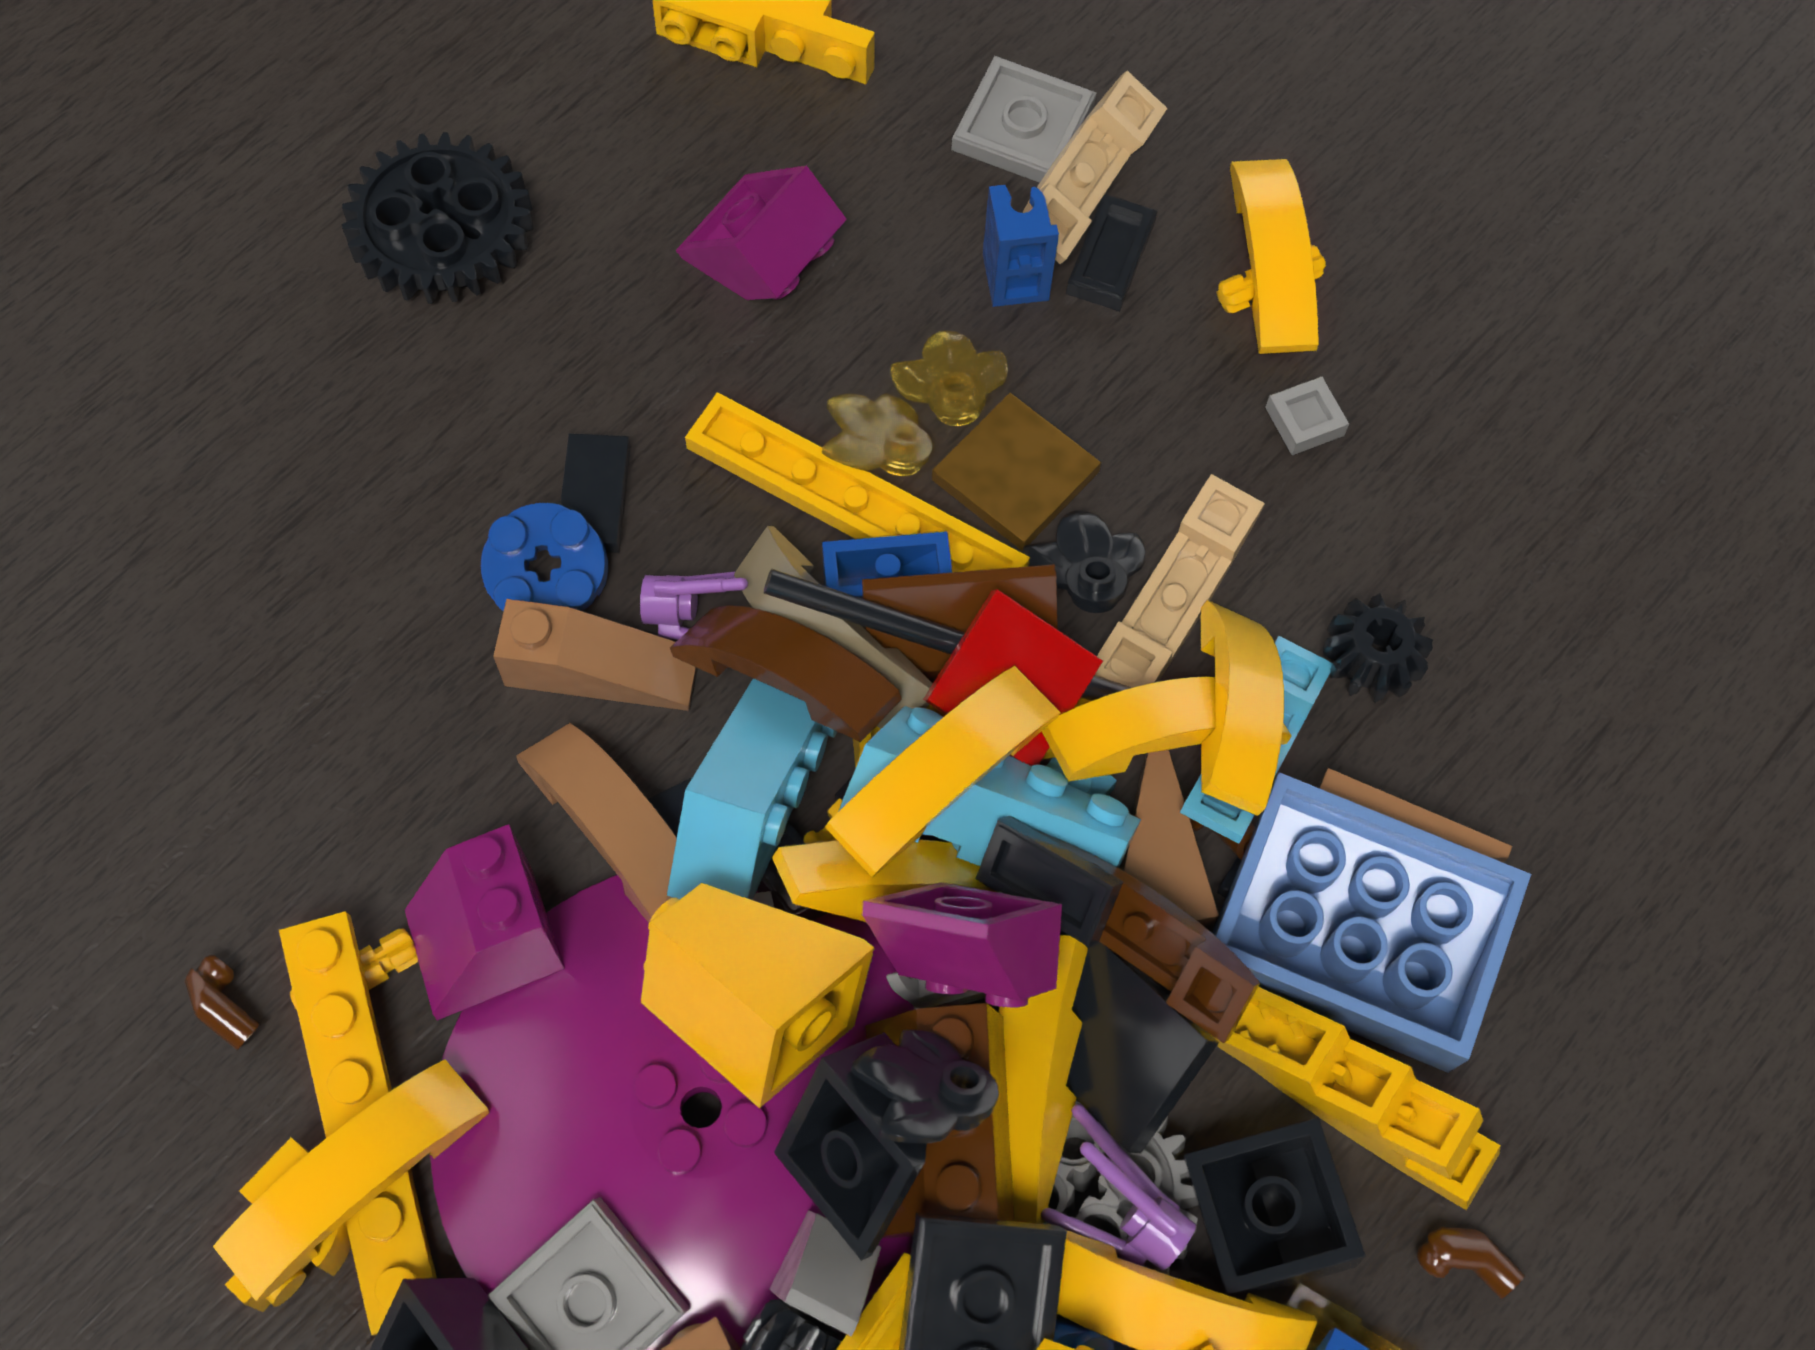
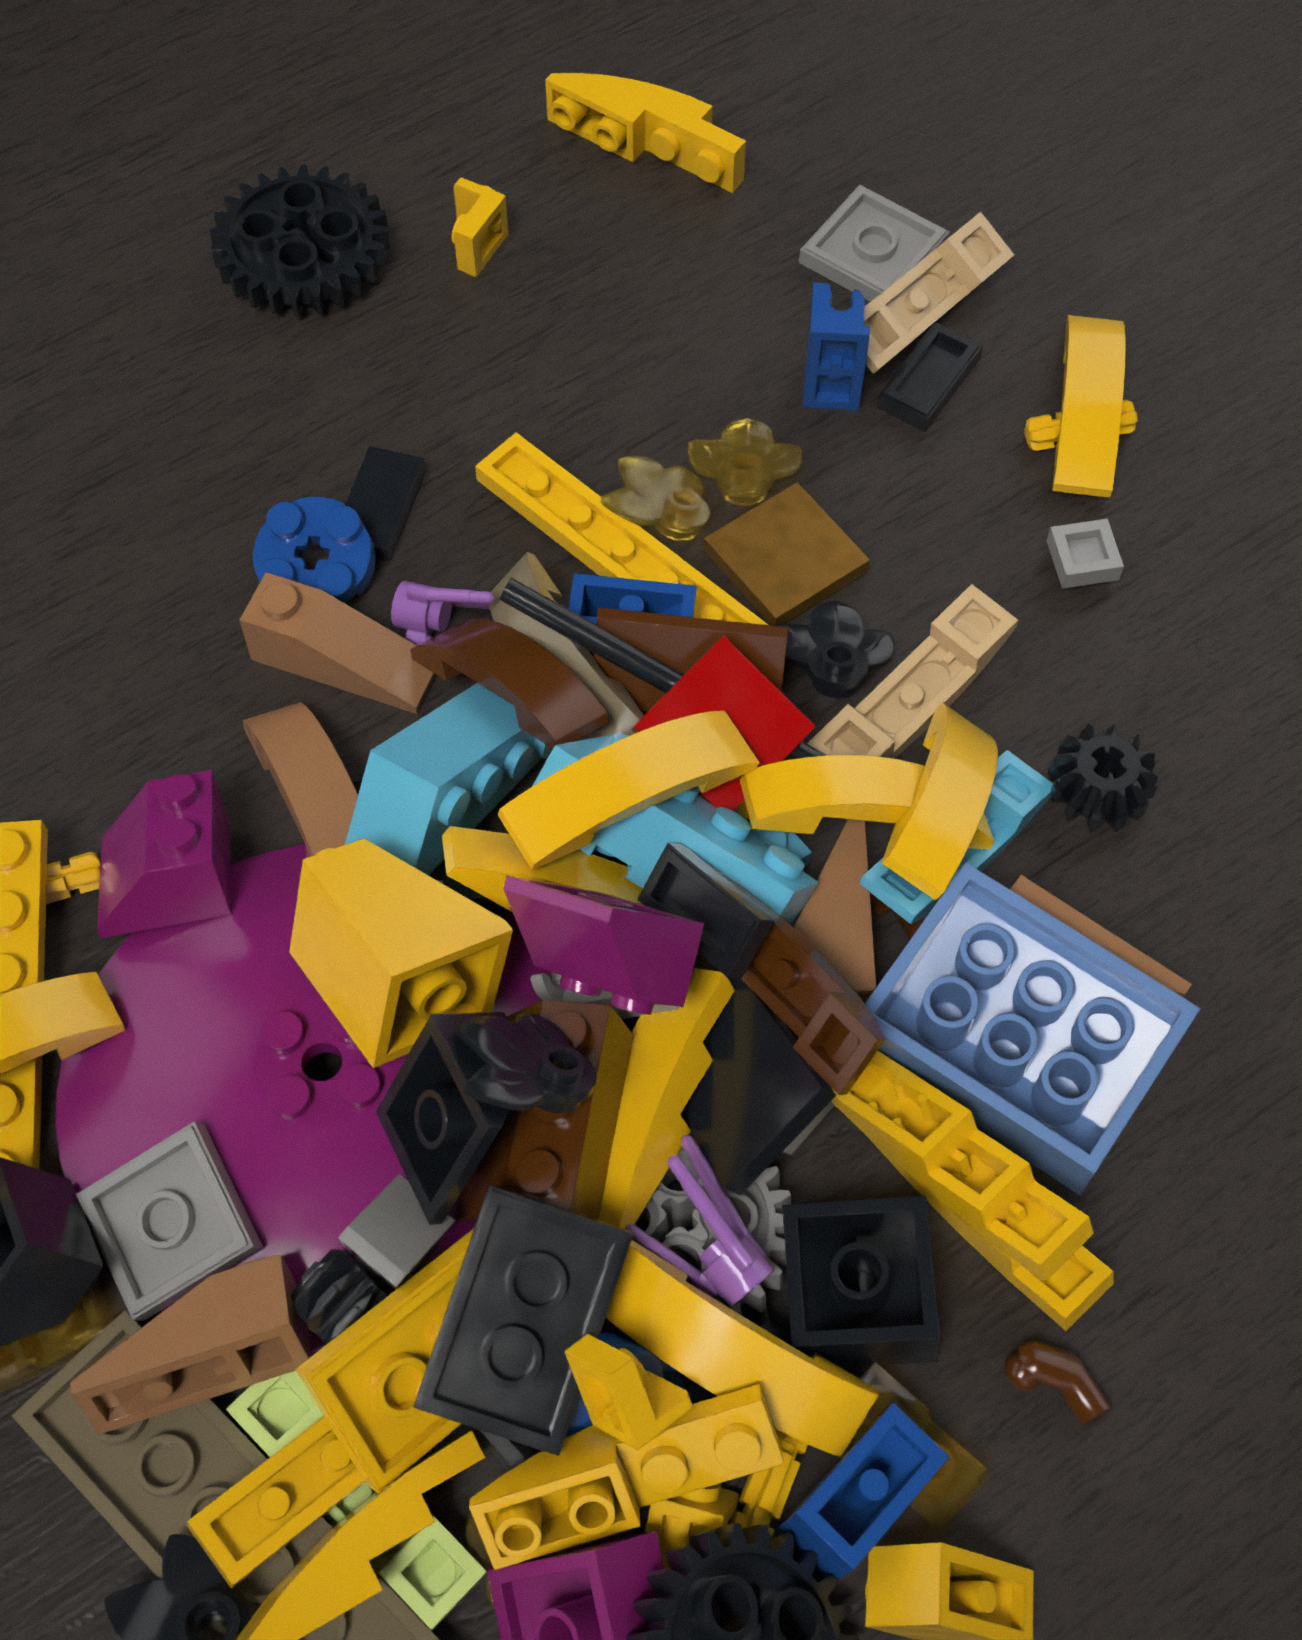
camera: 15 degrees right, 5 degrees down
(621, 166) = (479, 224): none -> yellow bracket
(765, 233) = (600, 303): magenta slope -> none

